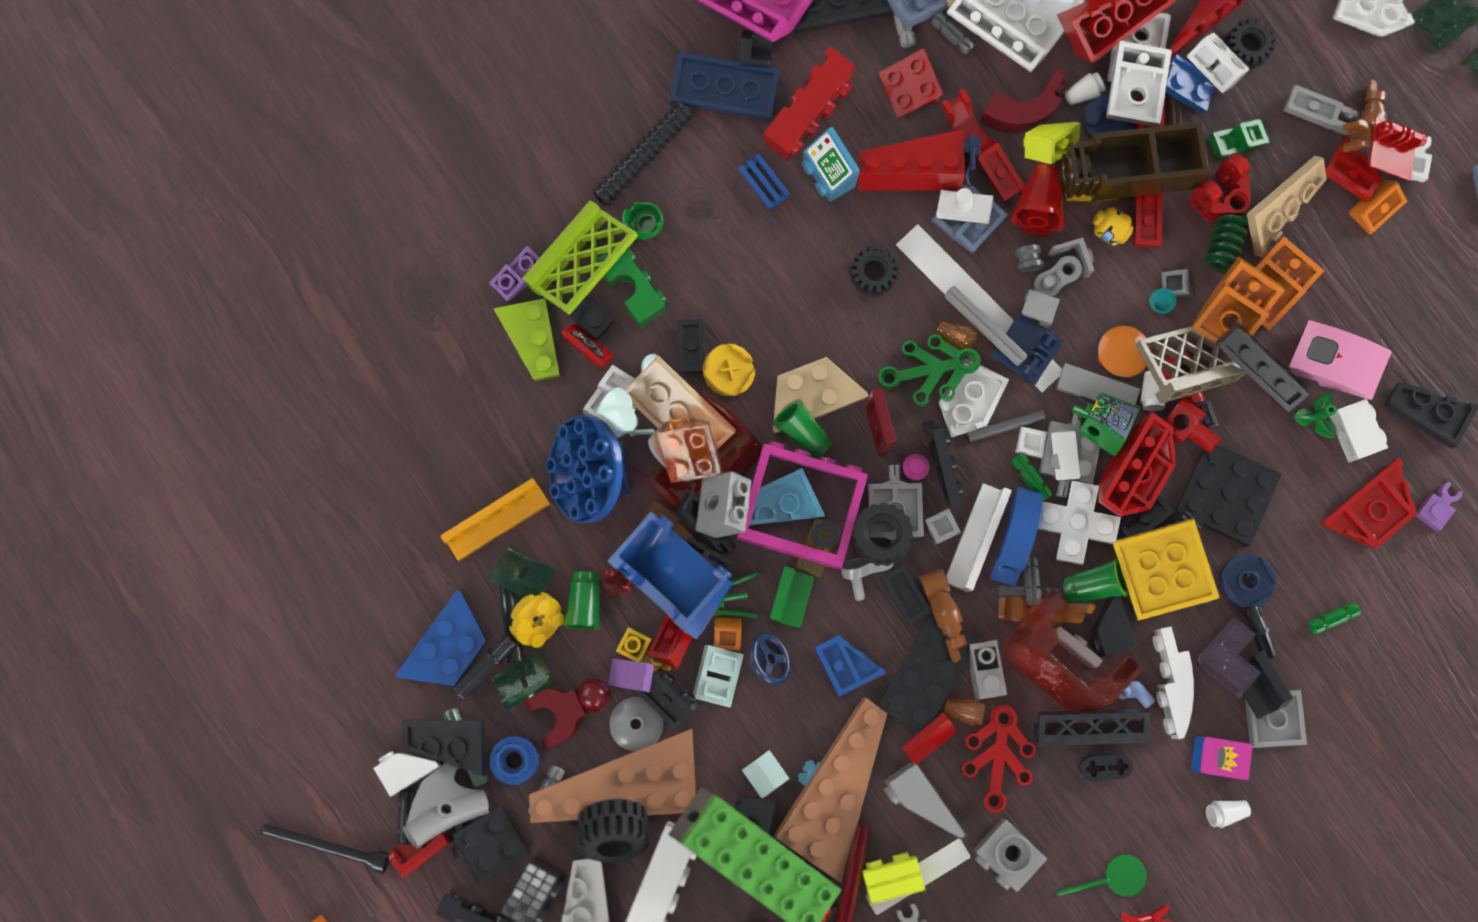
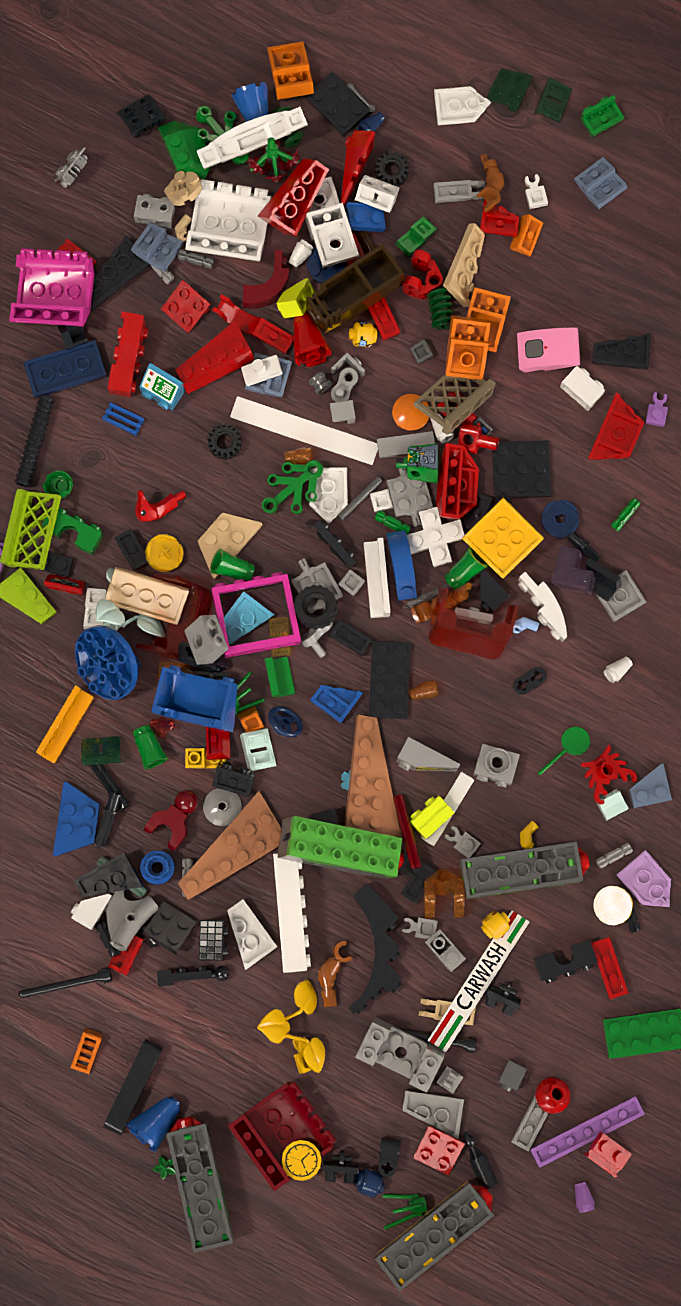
camera: 30 degrees left, 0 degrees up
(511, 687) = (131, 824): clear green piece -> none
(549, 619) = (130, 780): yellow plate -> none
(613, 830) = (242, 876): black tyre -> none
(631, 675) = (203, 776): medium lavender tile -> none
(689, 449) = (166, 616): clear orange slope -> none
(738, 311) = (153, 511): none -> red animal
(765, 774) = (319, 794): light aqua piece -> none
(830, 525) = (286, 623): black brick -> none
(880, 422) = (278, 537): dark red tile -> none
(915, 467) = (315, 554): dark pink plate -> none
(929, 739) = (410, 719): red tile -> none
(944, 610) = (379, 634): dark orange piece -> none
(972, 149) = (247, 330): dark blue plate -> none
(985, 326) = (314, 440): light grey axle -> none
(986, 670) = (424, 658): light grey slope -> none
(999, 753) = (459, 706): red plant -> none
(1032, 582) = (425, 588): dark grey axle -> none
(1036, 343) = (348, 442): dark blue hinge -> none
(1065, 446) = (405, 494): white sticker -> none
(1092, 731) = (510, 662): black fence -> none
(1163, 300) = (419, 367): teal plate -> none
(1221, 757) = (596, 637): dark pink piece -> none
(1262, 365) = (500, 377): black fence -> none
(1323, 408) = (554, 384): green plant -> none
(1394, 148) = (516, 194): hinge -> none

